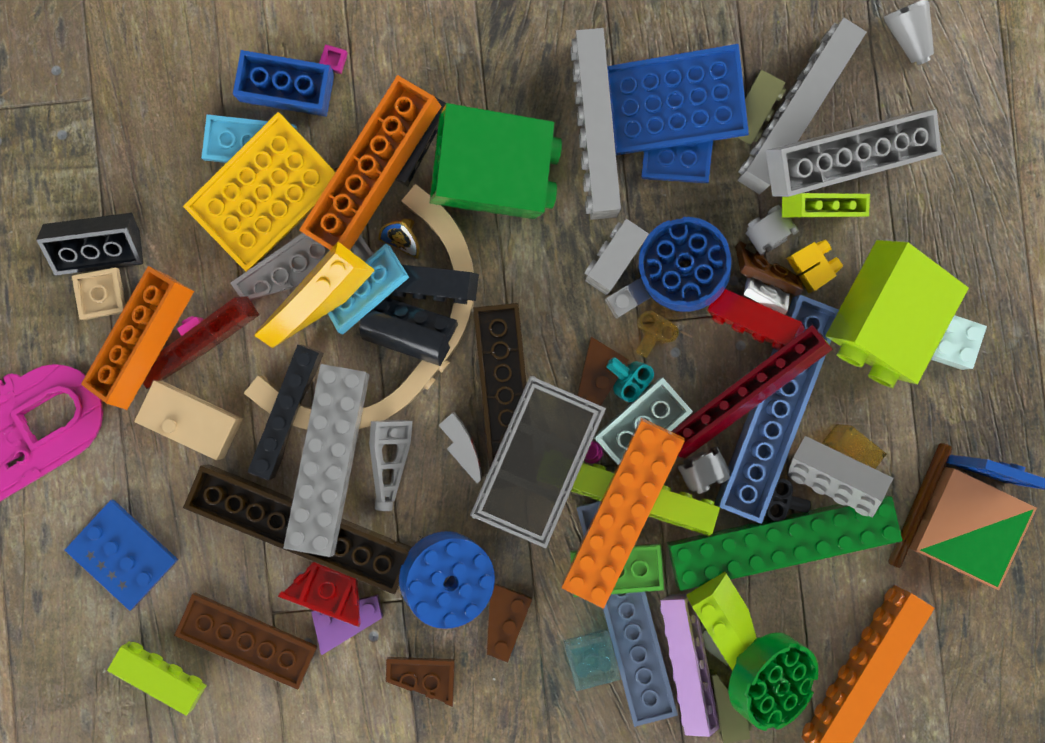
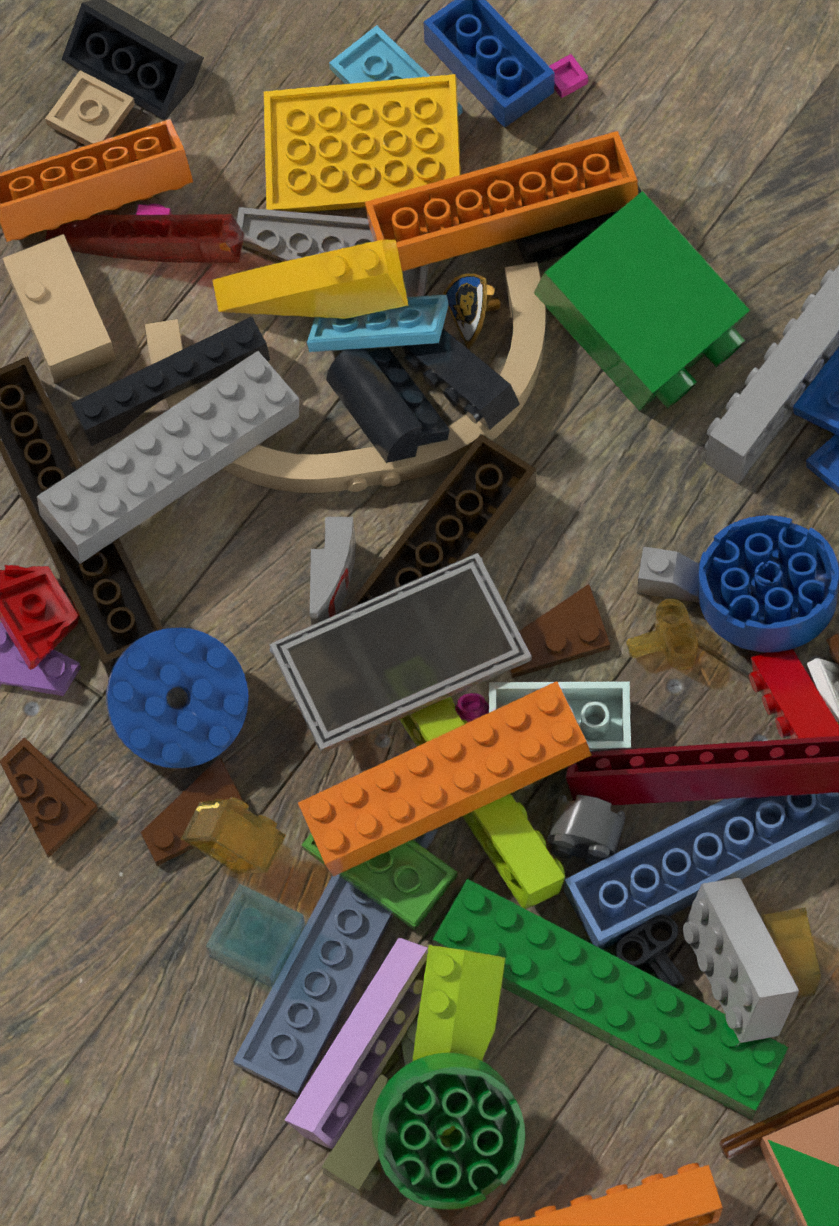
camera: 50 degrees right, 20 degrees down
(383, 433) = (265, 498): light grey plate -> none
(540, 625) = (234, 835): none -> clear yellow brick
(615, 256) = (693, 511): light grey brick -> none
(629, 377) = (591, 655): teal beam -> none

